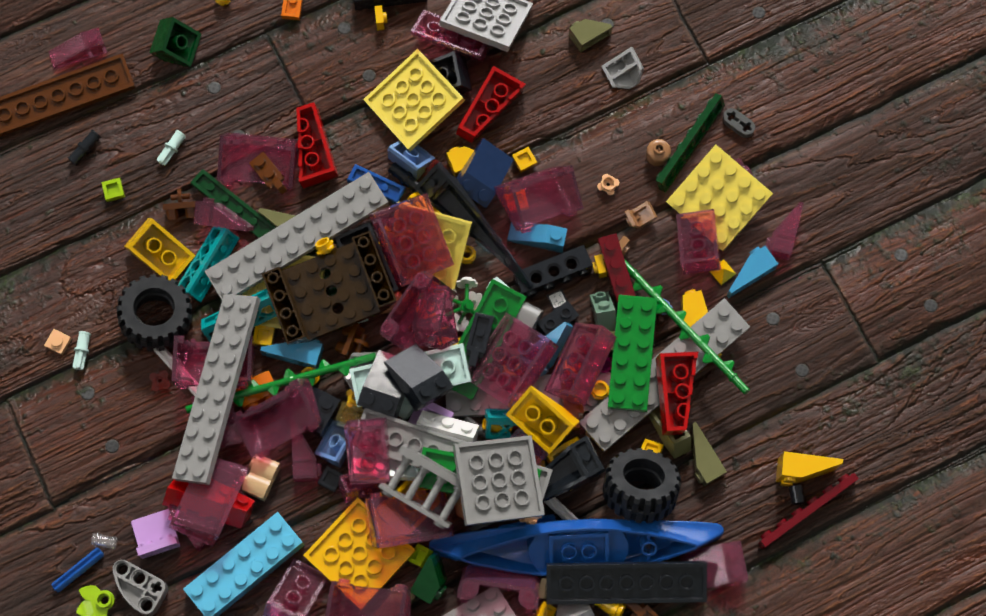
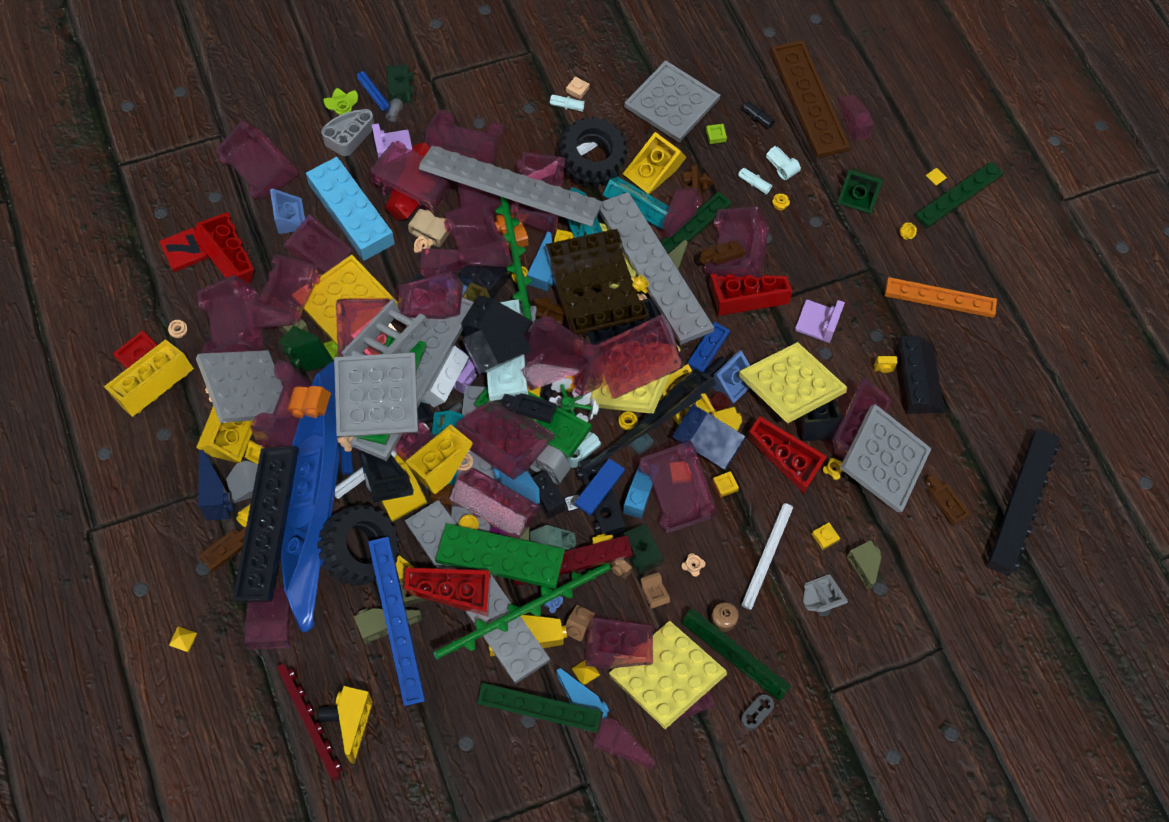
camera: 95 degrees right, 10 degrees down
(71, 238) = (672, 101): none -> light grey plate
(79, 542) = (399, 83): none -> clear green brick
(147, 454) = (464, 141): none -> clear pink windscreen
(151, 116) = (785, 166): none -> light aqua piece
(194, 125) = (781, 205): none -> yellow plate
(285, 487) = (420, 241): none -> light nougat plate
(336, 78) = (819, 320): none -> lavender bracket
(495, 58) = (833, 463): none -> yellow plate
(499, 557) = (309, 401): none -> orange brick
(548, 270) = (599, 487): none -> blue tile
(564, 69) = (825, 536): none -> yellow plate
(590, 119) = (767, 556): none -> white axle
(606, 221) = (651, 556): none -> clear green brick
(678, 280) = (578, 622): none -> medium nougat bracket
(708, 440) = (397, 621): none -> blue plate
(767, 304) = (540, 708): none -> dark green plate

